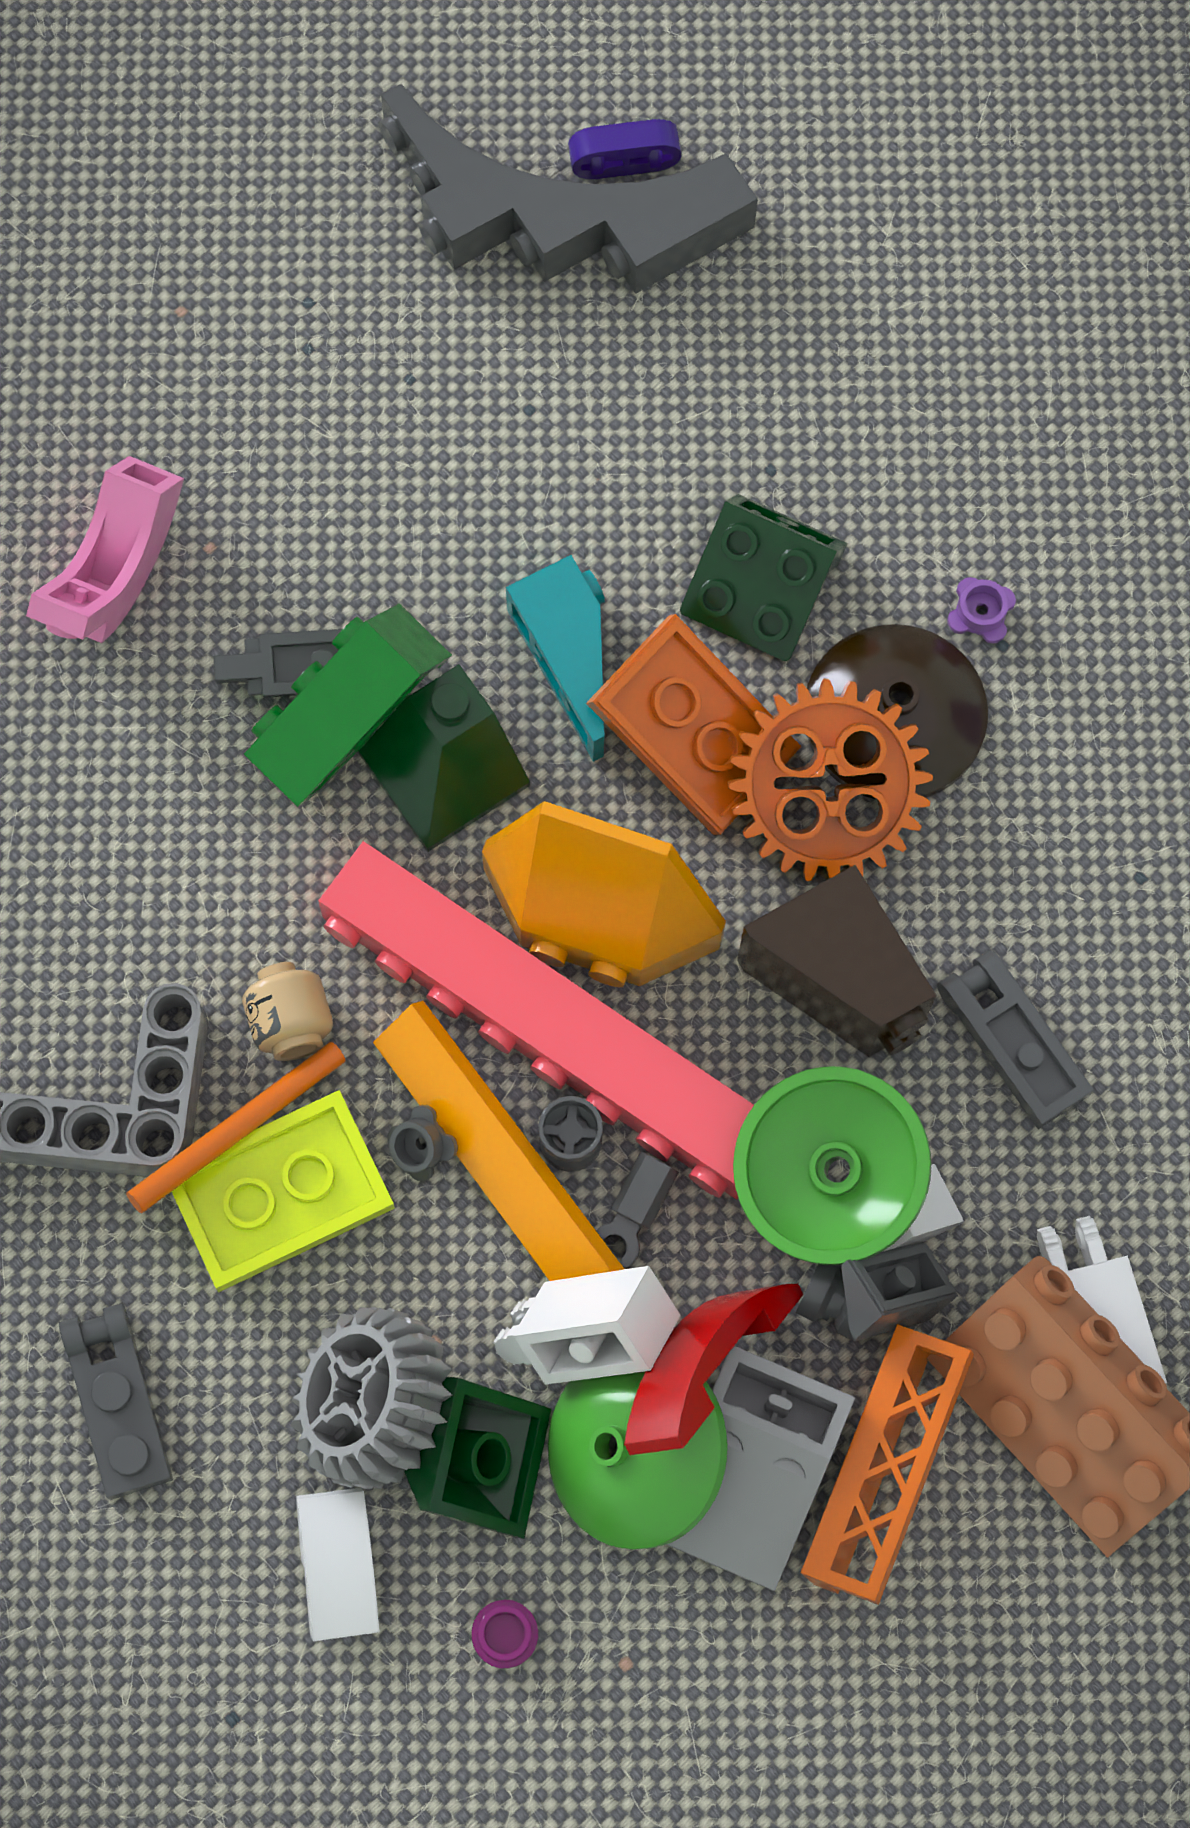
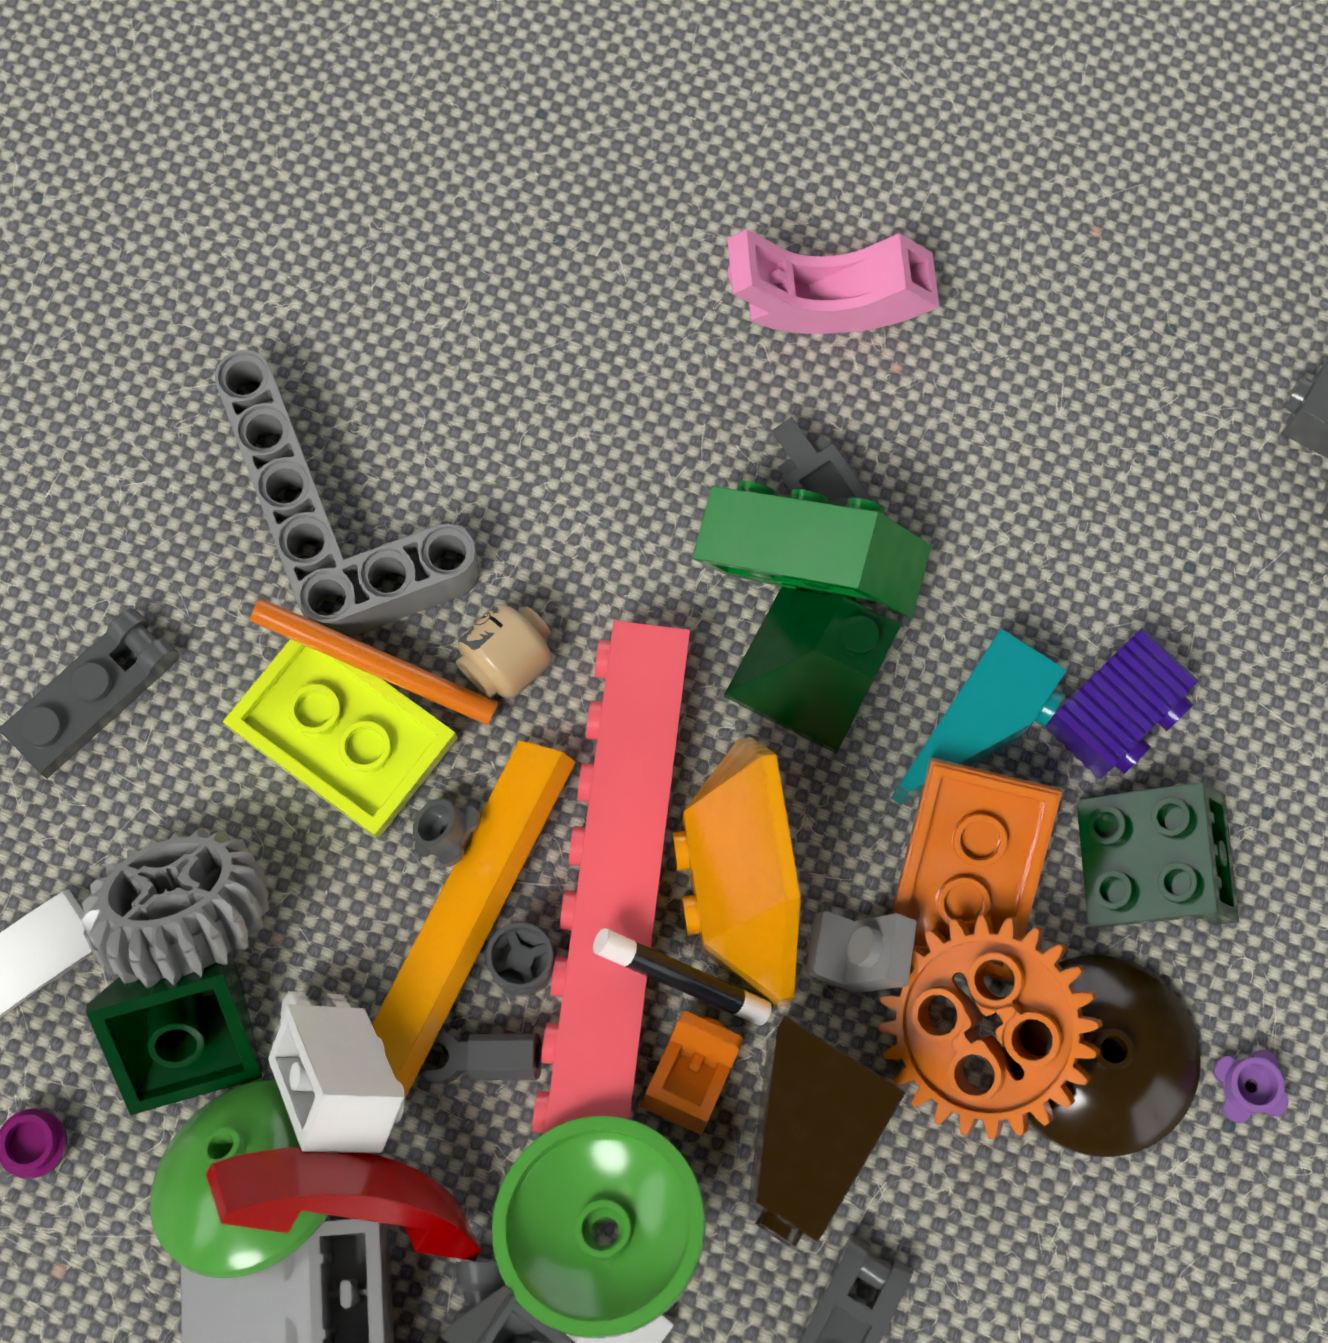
camera: 60 degrees right, 0 degrees up
(621, 529) = (1122, 704): none -> dark purple brick
(659, 1003) = (681, 976): none -> black bar
(720, 844) = (861, 953): none -> light grey bracket
(739, 1039) = (692, 1071): none -> orange bracket

